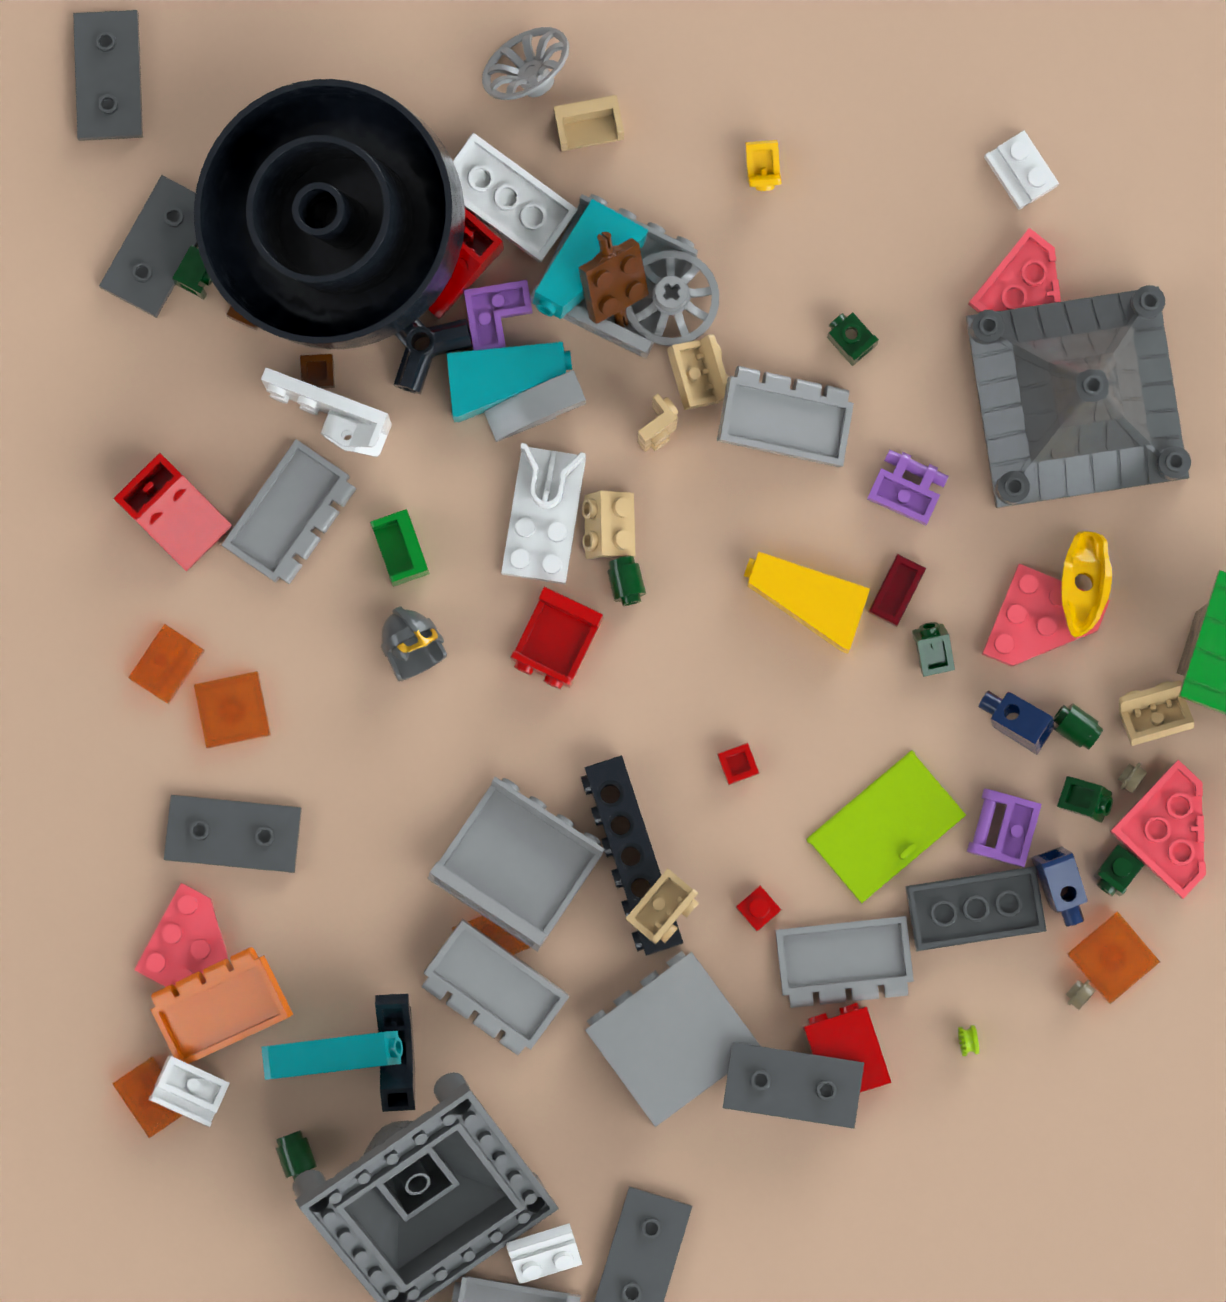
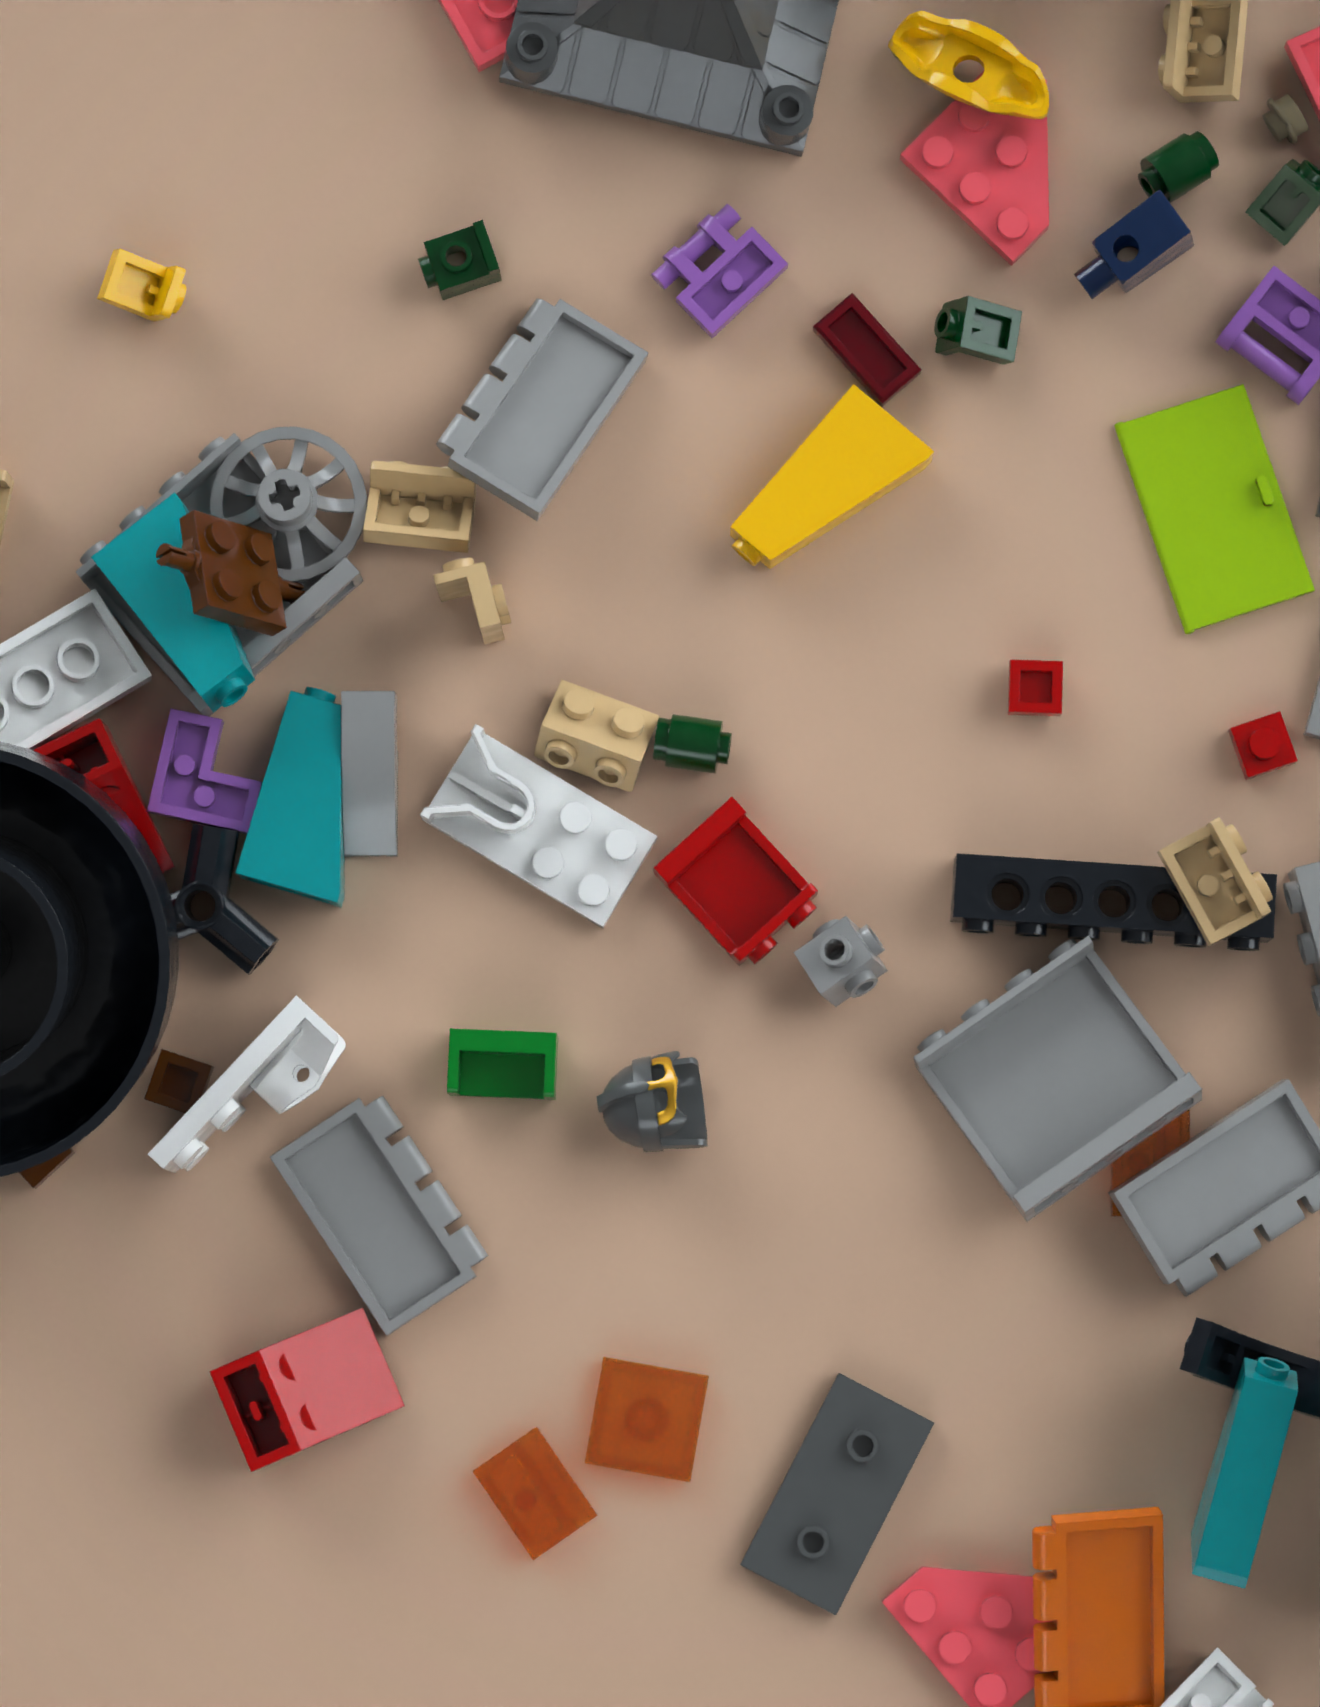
camera: 65 degrees left, 0 degrees up
(535, 715) = (842, 960): none -> light grey brick

